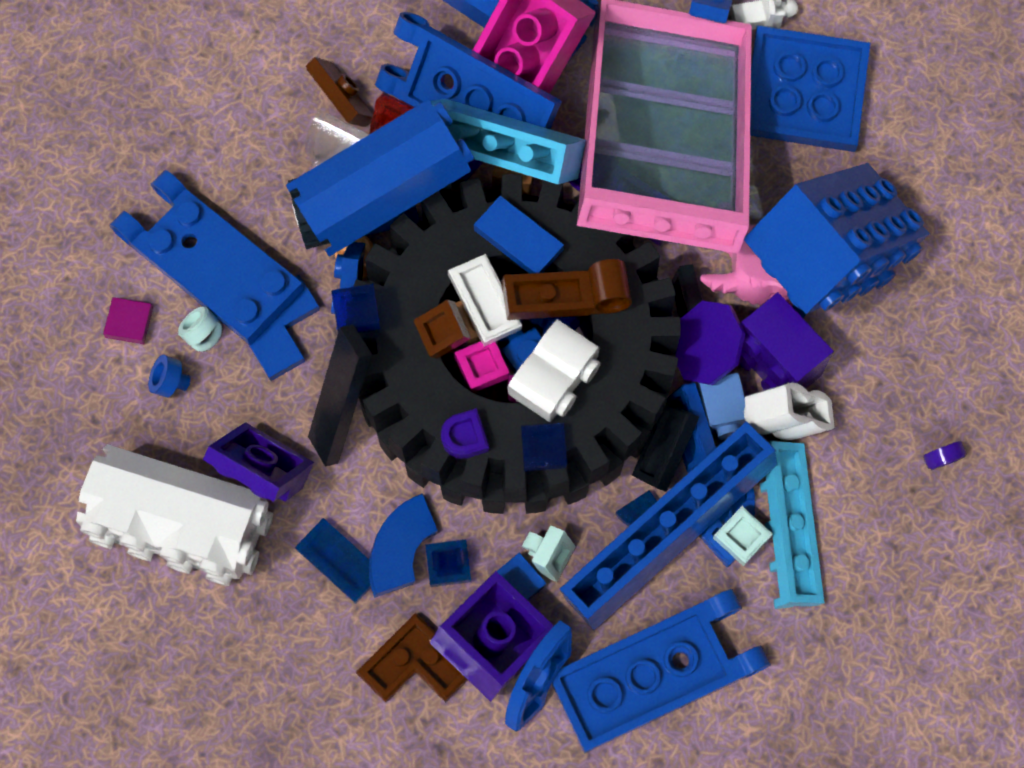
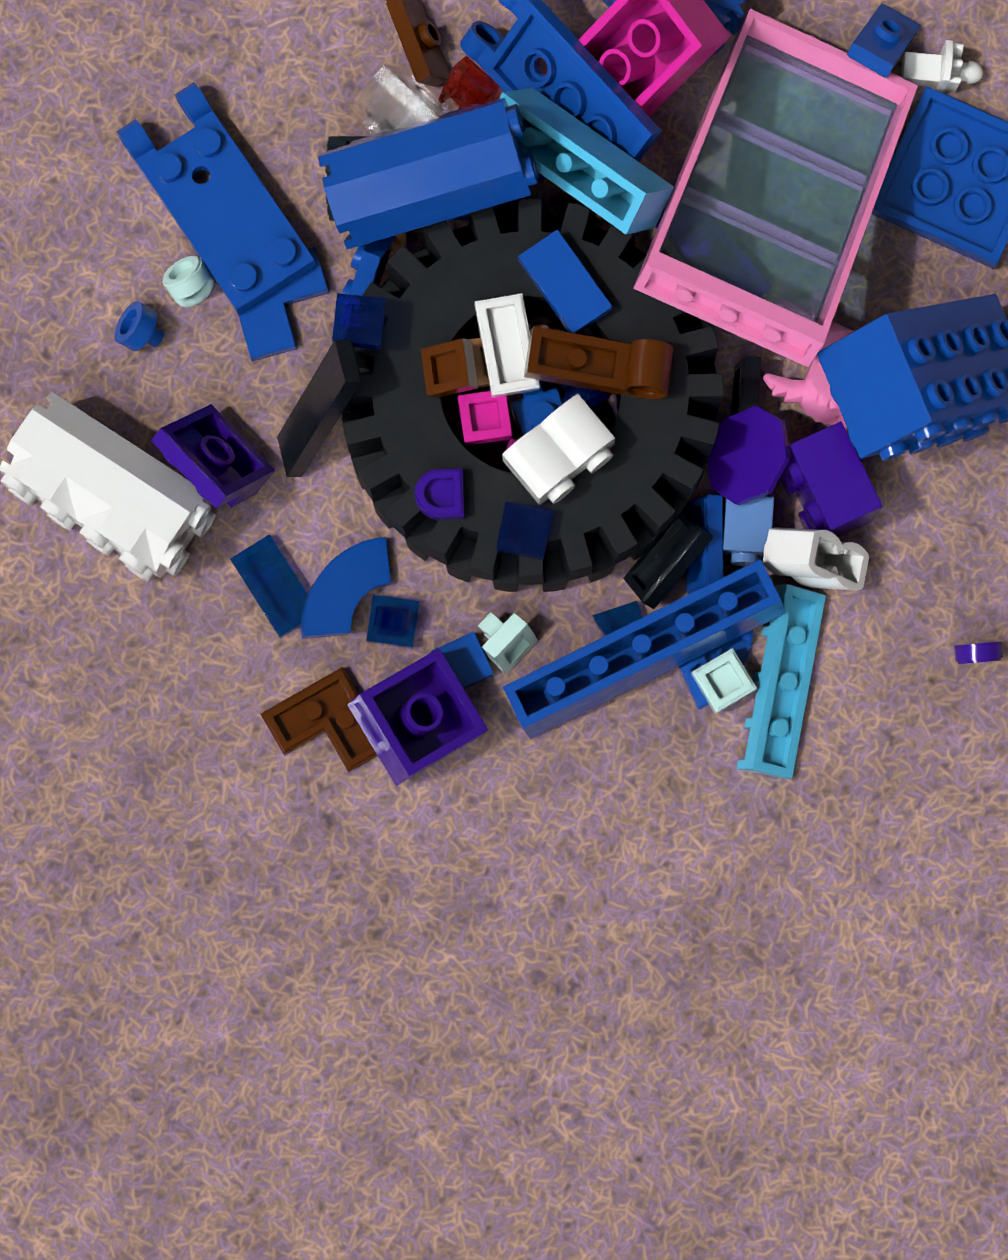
camera: 15 degrees right, 10 degrees up
(128, 320) = (110, 249): magenta tile -> none
(537, 675) = (452, 774): blue tile -> none
(636, 676) = (563, 807): blue hinge -> none

